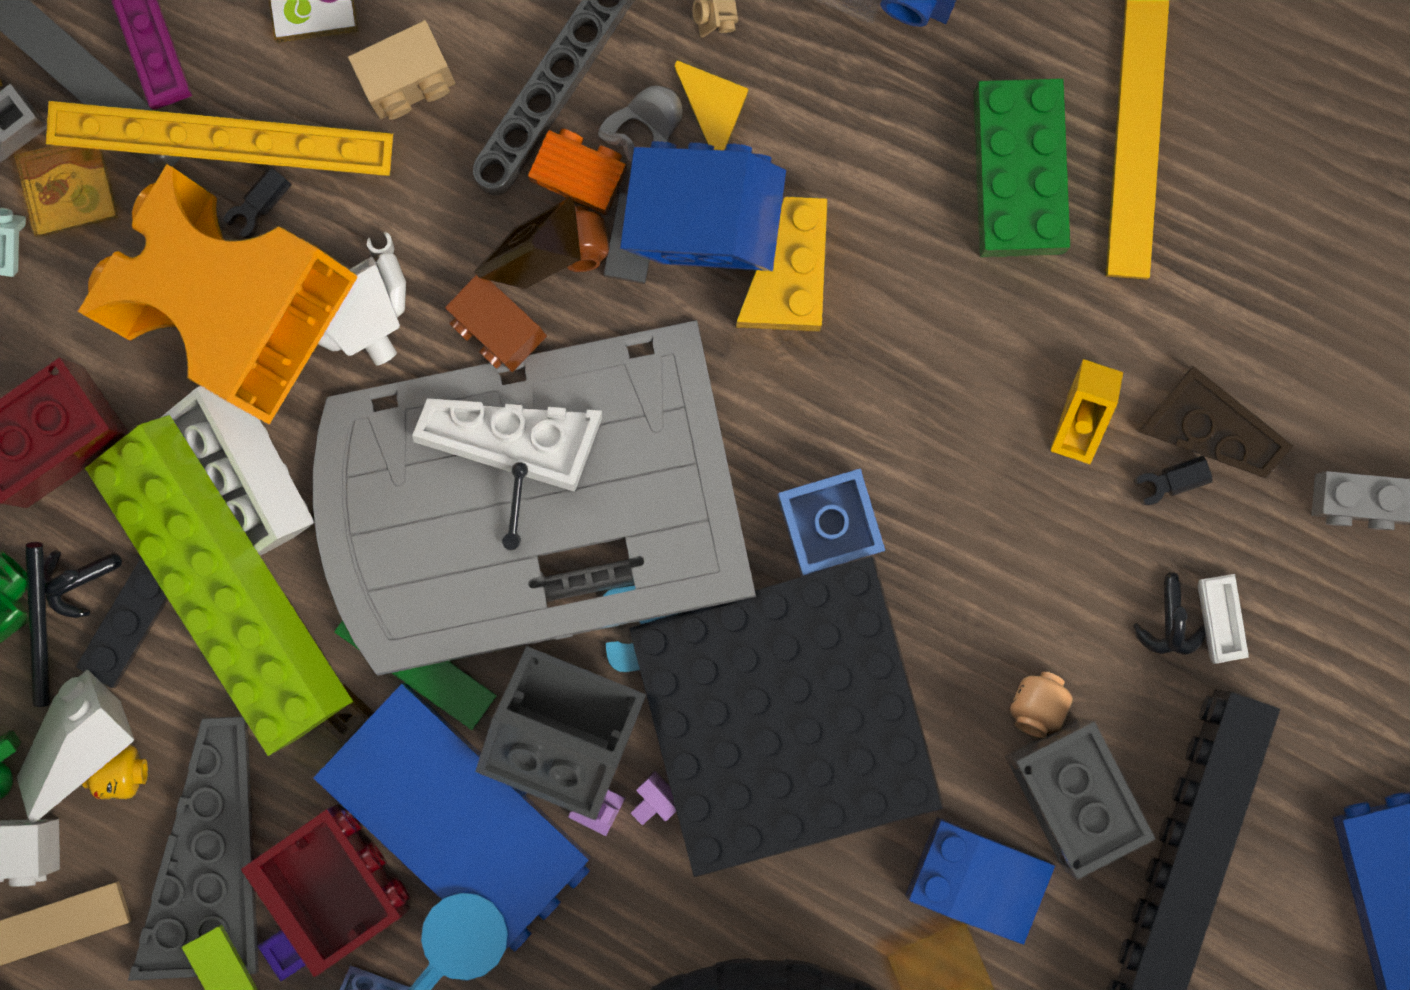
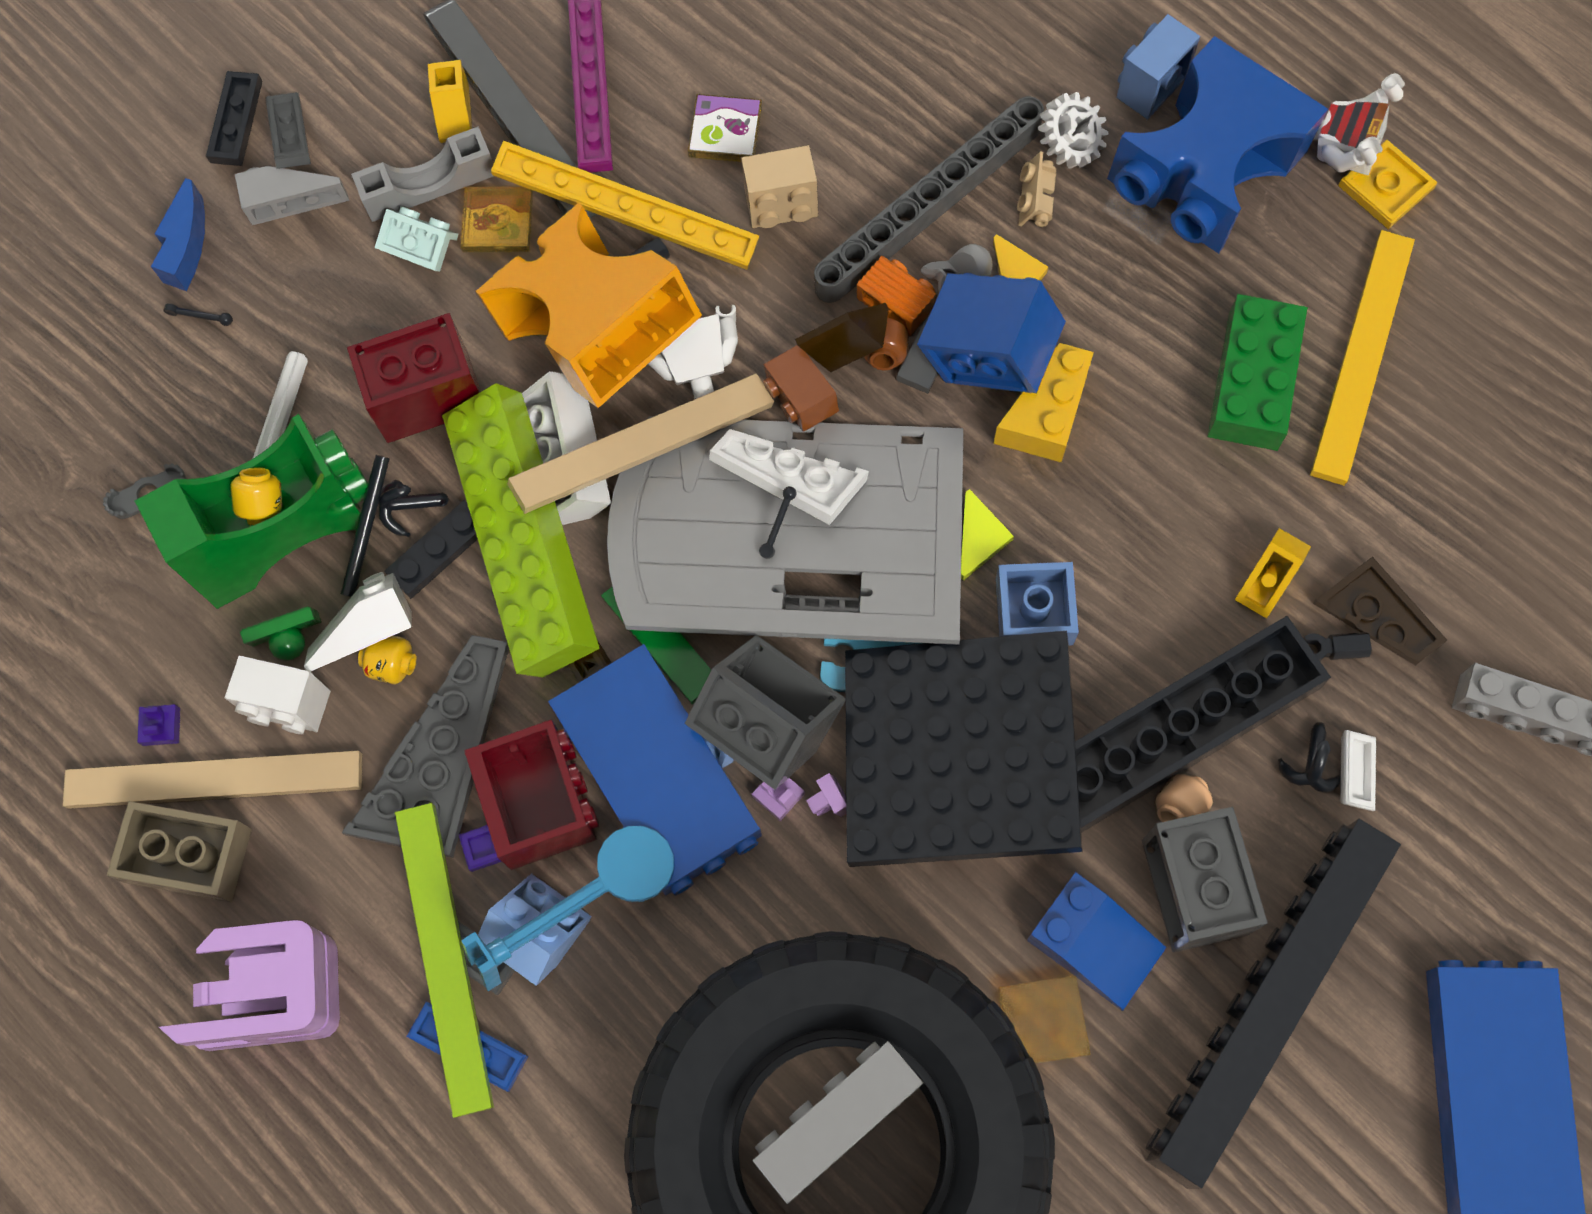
camera: 20 degrees right, 15 degrees down
(329, 446) = (639, 443): none -> tan tile
(748, 447) = (981, 535): none -> neon yellow tile
(1031, 613) = (1194, 719): none -> black brick

